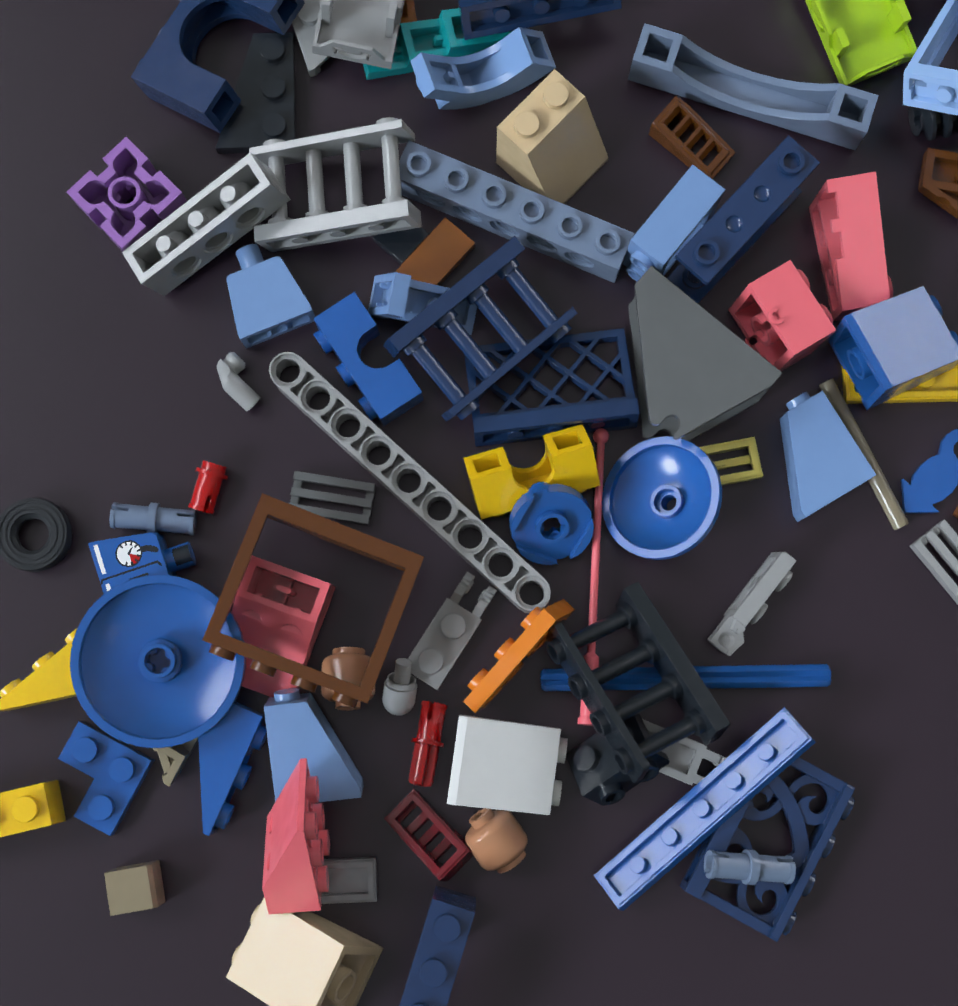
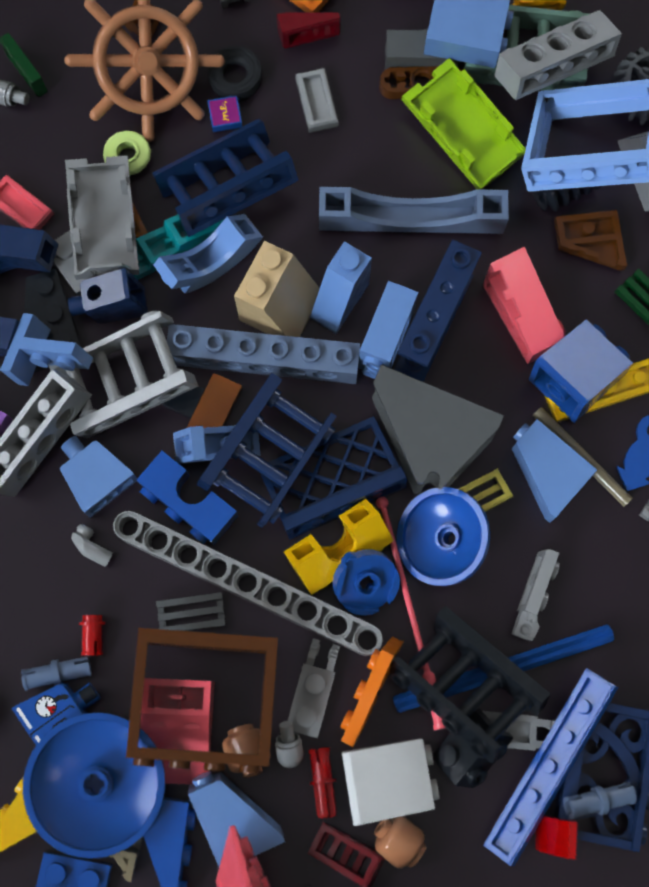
camera: 20 degrees left, 5 degrees down
(235, 122) = (32, 349): none -> medium blue bracket
(347, 87) = (110, 297): none -> dark blue torso
(633, 156) = (341, 287): none -> medium blue slope
(684, 893) = (557, 837): none -> red slope
(701, 130) = (375, 246): reddish brown slope -> none
(782, 316) = (490, 373): coral brick -> none

